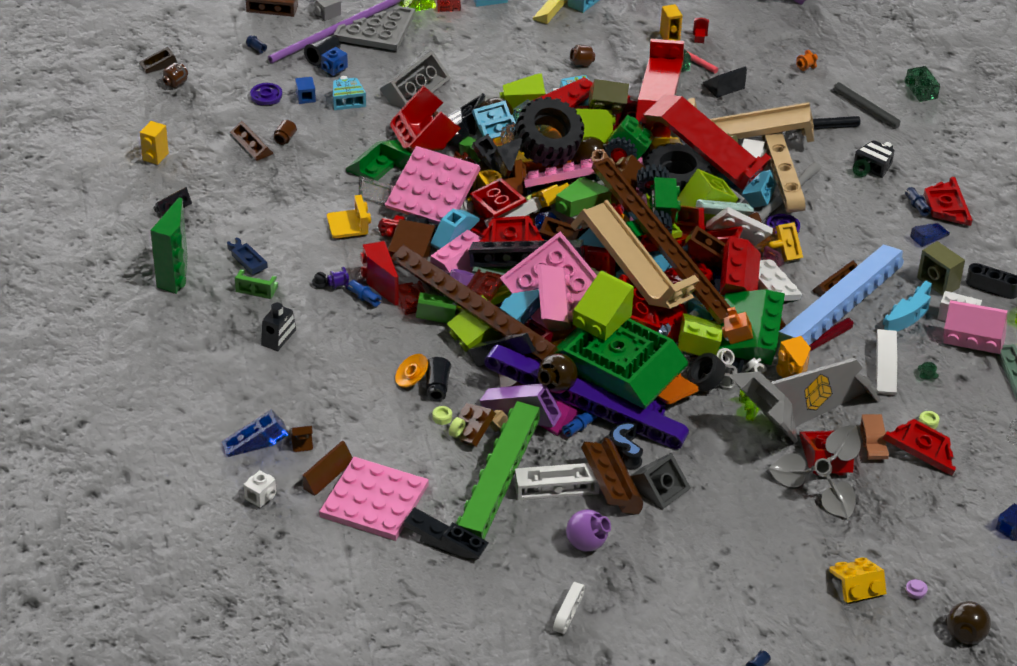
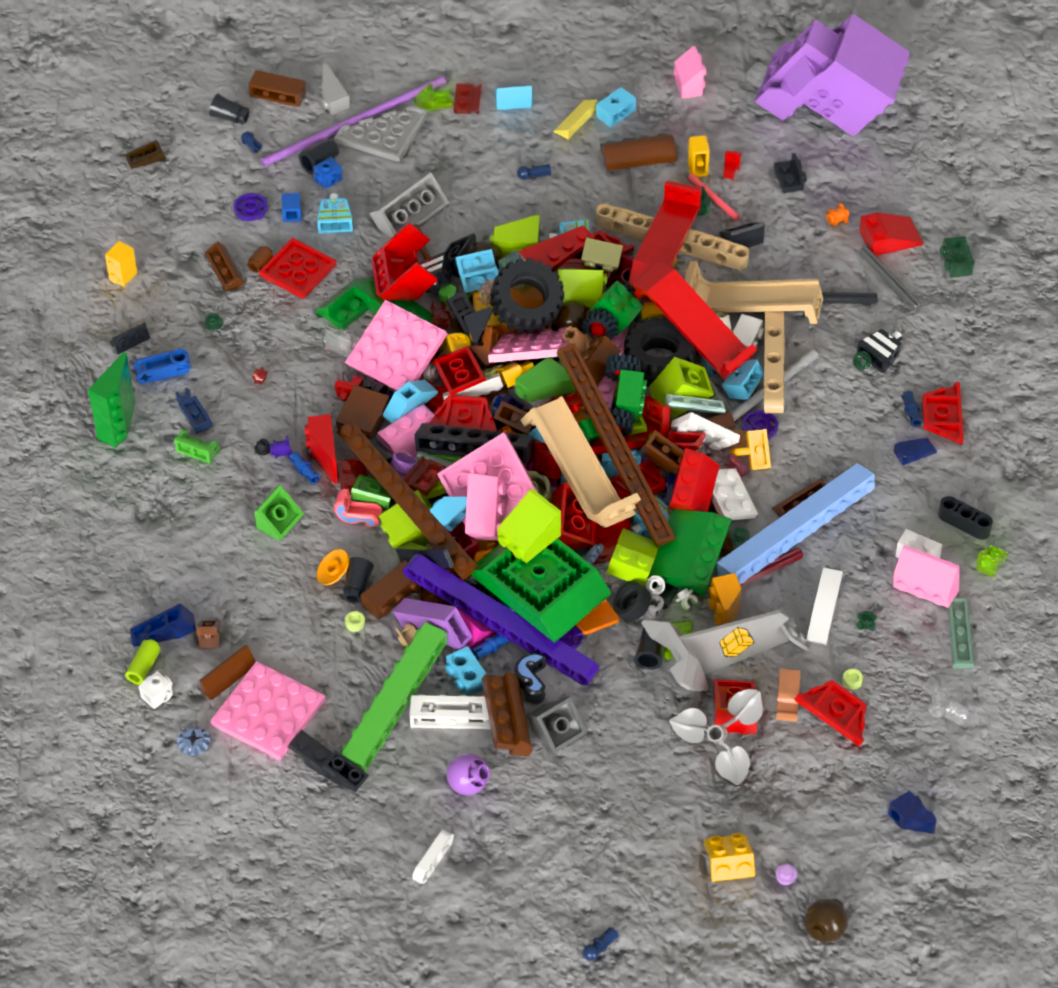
camera: 10 degrees right, 10 degrees up
(175, 75) = (158, 176): reddish brown head -> none
(210, 222) = (162, 366): none -> blue piece
(230, 20) = (228, 110): none -> black plant
(241, 467) = (143, 661): none -> lime brick
(250, 184) = (213, 322): none -> clear green plate
(277, 327) = (207, 502): black torso -> none
(298, 535) = (200, 745): none -> sand blue gear
(305, 223) = (259, 376): none -> clear red plate
(321, 136) = (298, 268): none -> red plate
(347, 331) = (277, 514): none -> bright green slope
(350, 222) = (305, 378): yellow bracket -> none
(422, 324) = (355, 511): none -> coral animal
(457, 427) = (365, 639): yellowish green tile -> none
(471, 385) = (388, 592): none -> reddish brown brick
(477, 422) = (387, 635): reddish brown plate -> none
(514, 49) = (524, 172): none -> dark blue pin
(557, 373) = (470, 596): dark brown brick -> none
(561, 445) = (468, 670): none -> medium azure brick
(582, 55) = (594, 187): reddish brown head -> none
(615, 26) = (638, 151): none -> reddish brown brick
(704, 93) = (696, 243): none -> tan beam
(733, 411) = (648, 652): none -> black plant
(737, 326) = (672, 555): orange brick -> none
(755, 34) = (790, 174): none -> black bracket
(789, 313) = (739, 540): none -> clear green plate
(854, 71) = (888, 233): none -> red slope
(910, 310) = (865, 547): medium azure slope -> none
(941, 268) = (910, 499): olive brick -> none

